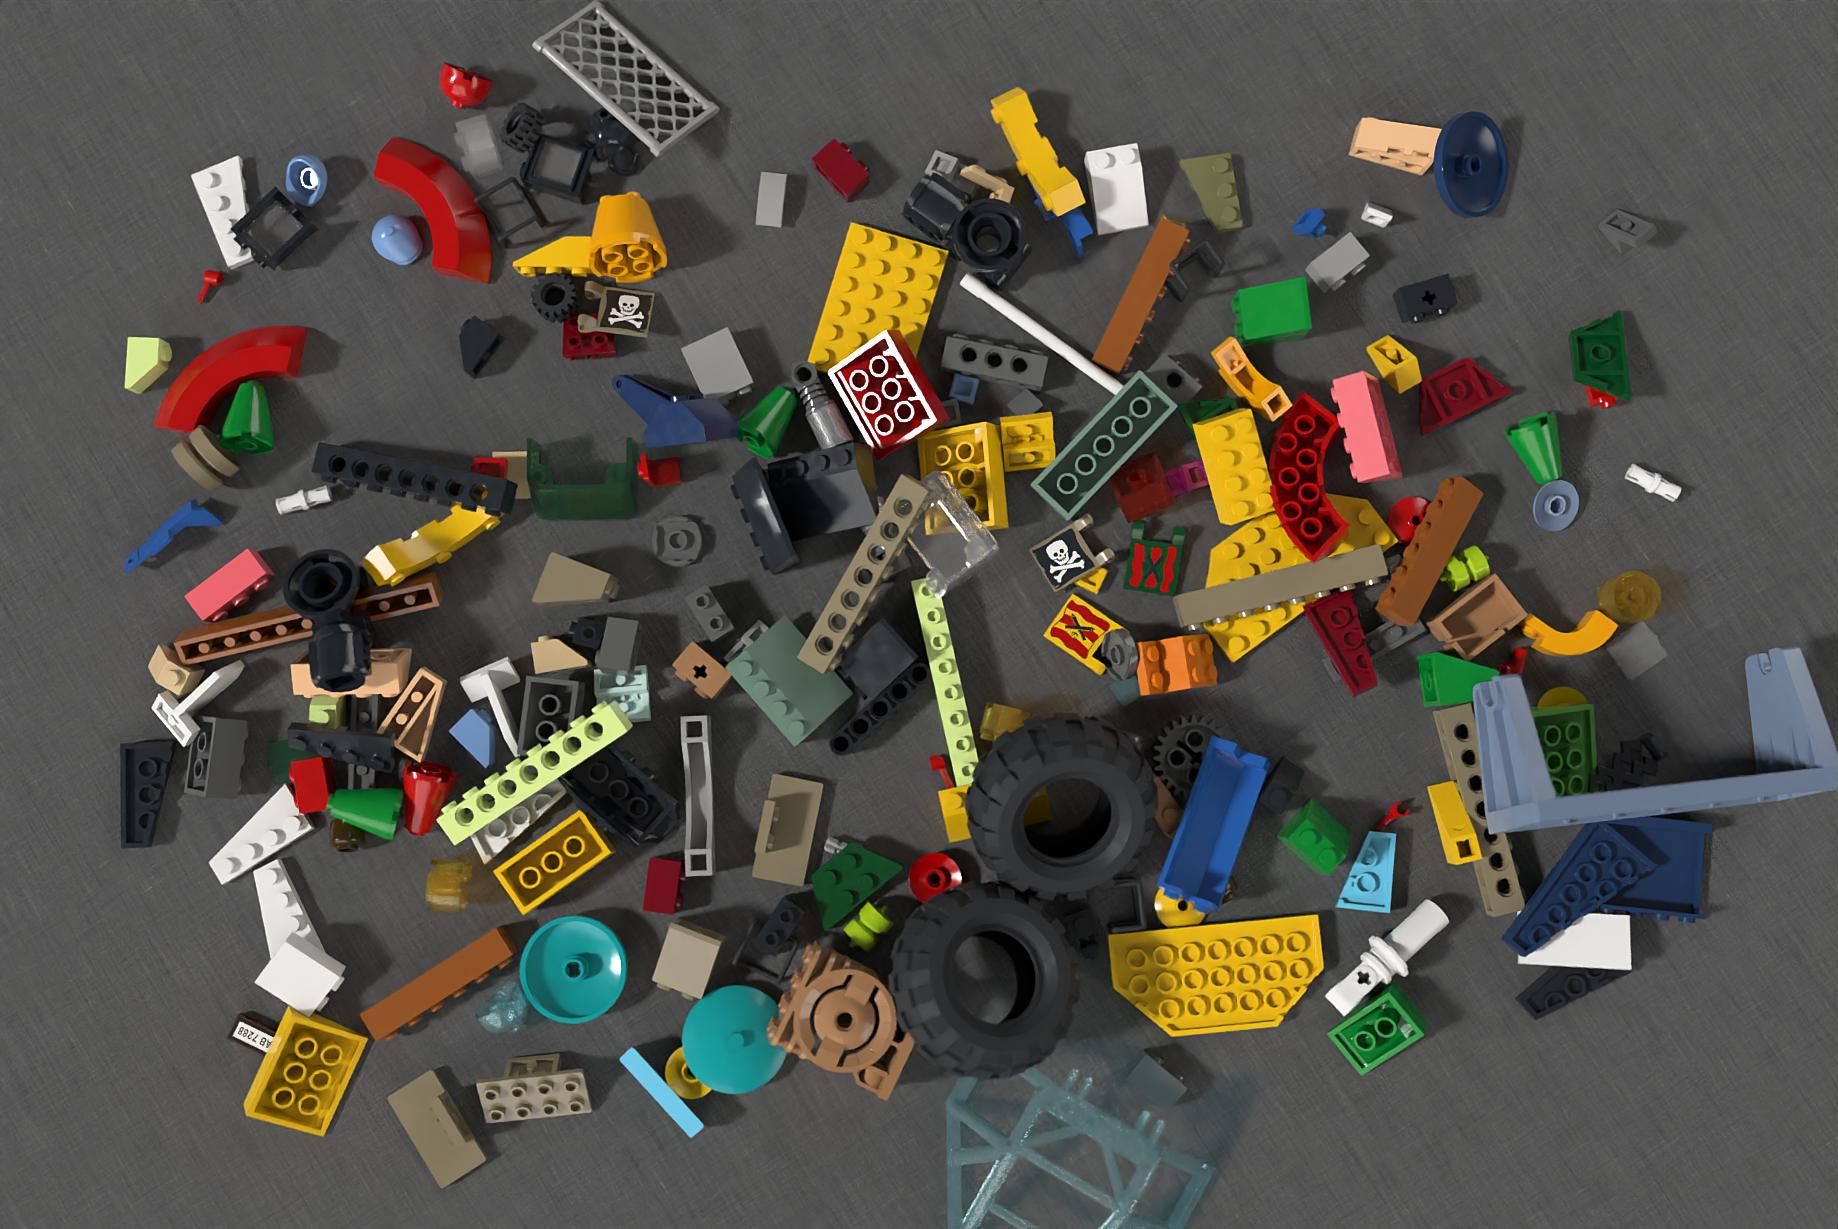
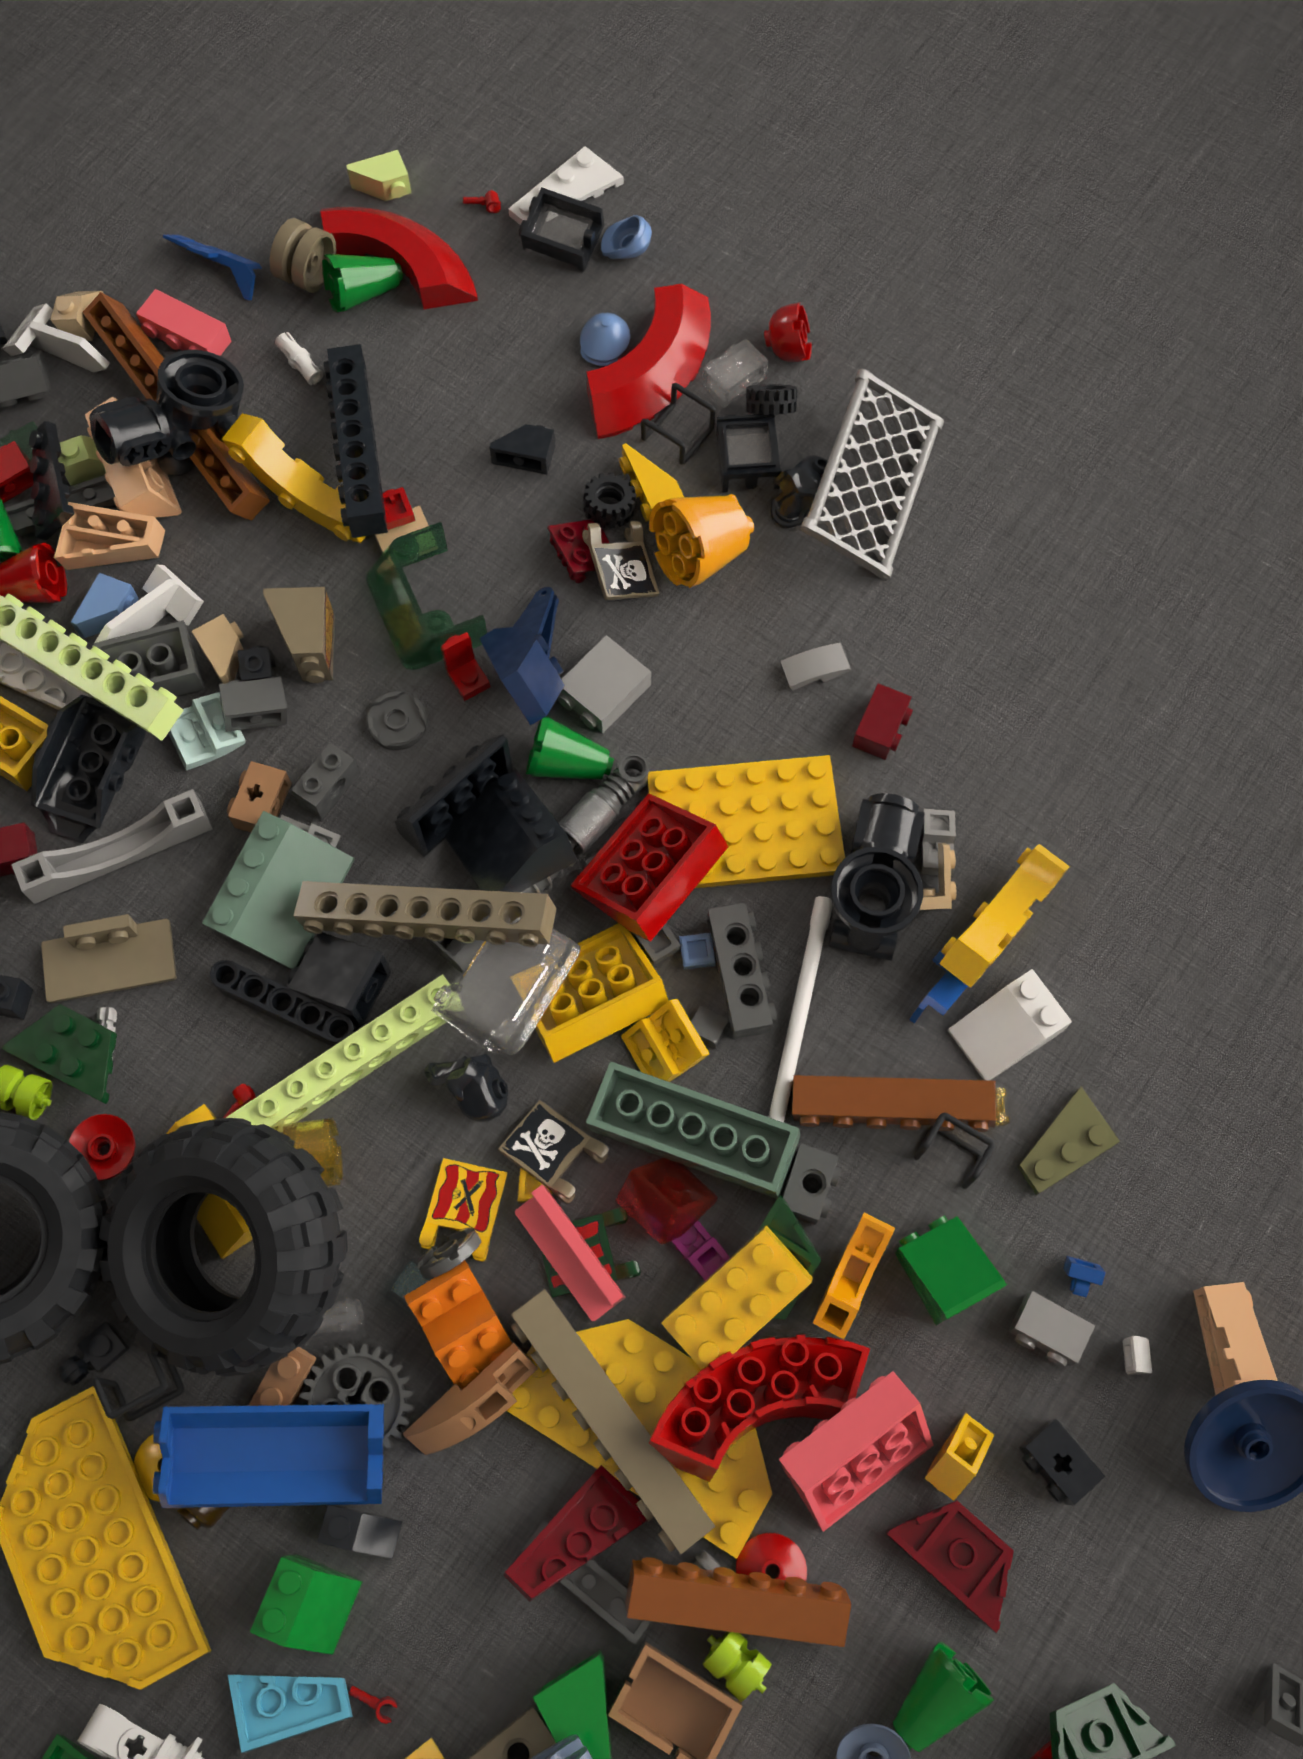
camera: 65 degrees right, 15 degrees down
(1000, 591) = (474, 1084): none -> black head
(1151, 571) = (569, 1254): none -> coral panel
(1233, 686) = (469, 1410): none -> medium nougat slope

